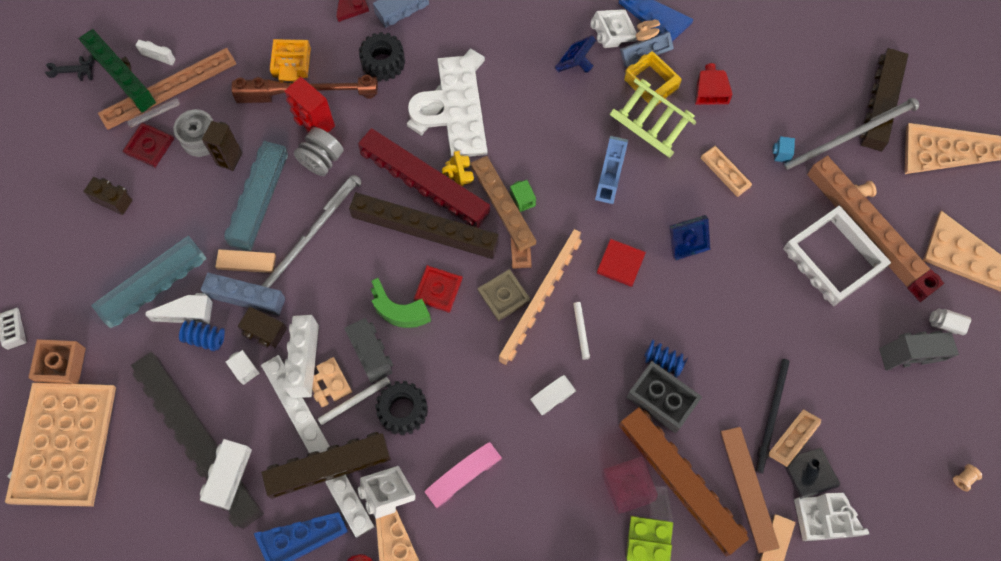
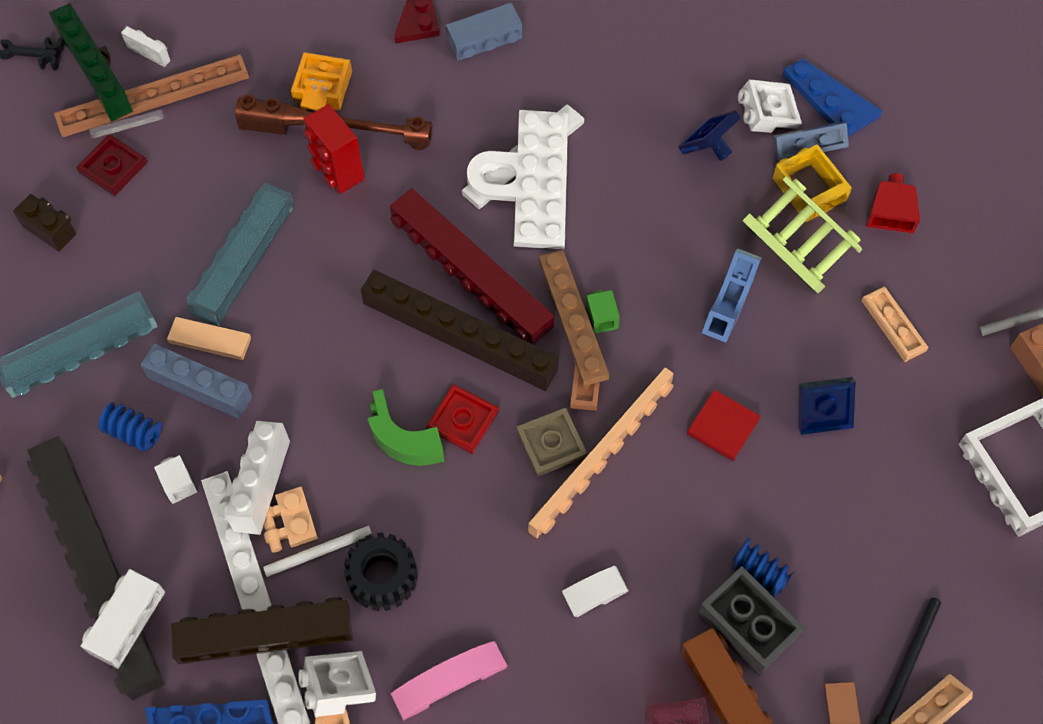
camera: 10 degrees right, 5 degrees down
(188, 308) = (116, 387): white slope -> none
(190, 129) = (178, 158): light grey wheel -> none
(222, 145) = (207, 179): dark brown brick -> none
(262, 327) = (212, 430): dark brown brick -> none
(318, 151) = (335, 208): light grey wheel -> none
(329, 208) = (335, 286): light grey bar -> none
(369, 350) = (352, 485): dark grey wedge -> none
(378, 45) = (445, 81): black tyre -> none
(455, 169) = (515, 262): yellow hips -> none
(581, 330) = (651, 509): white bar -> none
(645, 30) = (815, 115): light nougat piece -> none
(784, 149) = (981, 306): dark azure plate -> none

